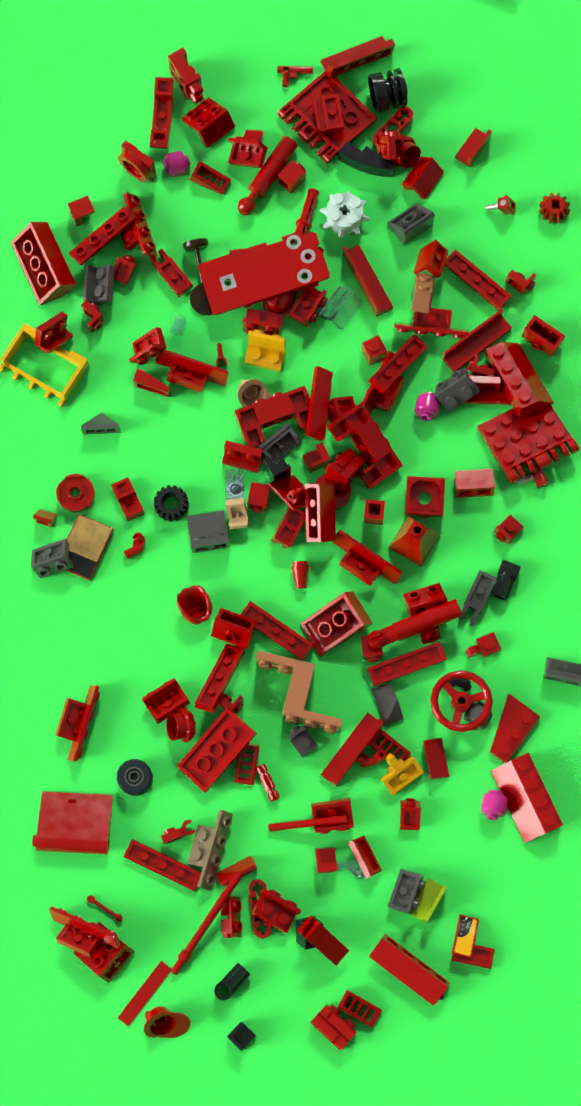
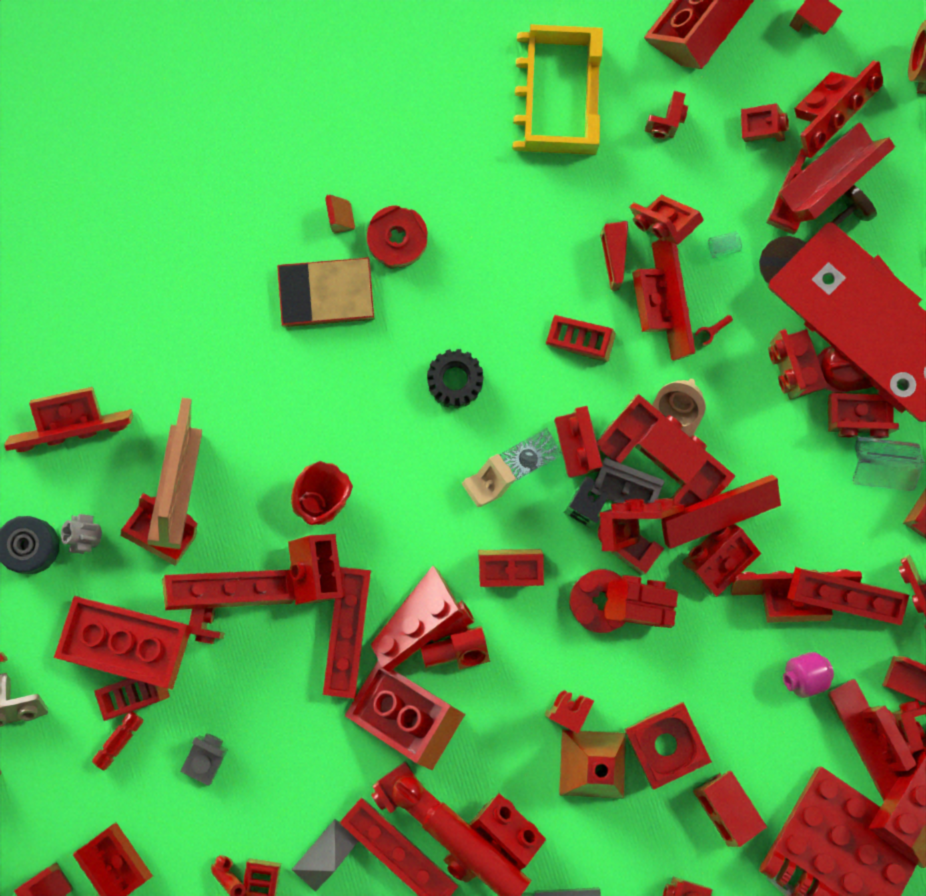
camera: 55 degrees right, 5 degrees up
(51, 558) = (281, 254): dark grey bracket -> none
(52, 333) = (610, 75): red bracket -> none
(98, 284) = (720, 99): dark grey bracket -> none
(100, 425) = (515, 215): dark grey slope -> none
(102, 236) = (794, 64): red bracket -> none
(128, 499) = (429, 314): red slope -> none
(137, 547) = (365, 366): red arm -> none
(144, 675) = (176, 481): none -> nougat fence
(145, 744) = (81, 533): none -> light grey gear
(172, 248) = (833, 173): none -> red panel
(181, 725) = (133, 571): red piece -> none
(196, 425) = (578, 348): none -> red slope
(208, 531) = (441, 453): dark grey bracket -> none
(258, 497) = (531, 499): red brick -> none
(265, 350) = (756, 389): yellow bracket -> none
(290, 490) = (566, 547): red hinge -> none
(290, 590) = (417, 621): none -> wing
(296, 456) = (620, 524): none -> red bracket
(298, 691) = (264, 718): nougat bracket -> none
(307, 823) = (83, 834): red bar -> none
(318, 573) = (464, 646): none -> red piece
(320, 512) = (555, 603): red brick -> none
(351, 749) = (228, 840): red fence -> none
(364, 562) = (517, 707): red bracket -> none
(369, 442) = (702, 620): red bracket -> none
(373, 350) = (849, 548): red brick -> none
(374, 512) = (601, 682): red brick -> none
(382, 535) = (568, 713): none -> red hinge
(456, 390) = (858, 706): dark grey bracket -> none

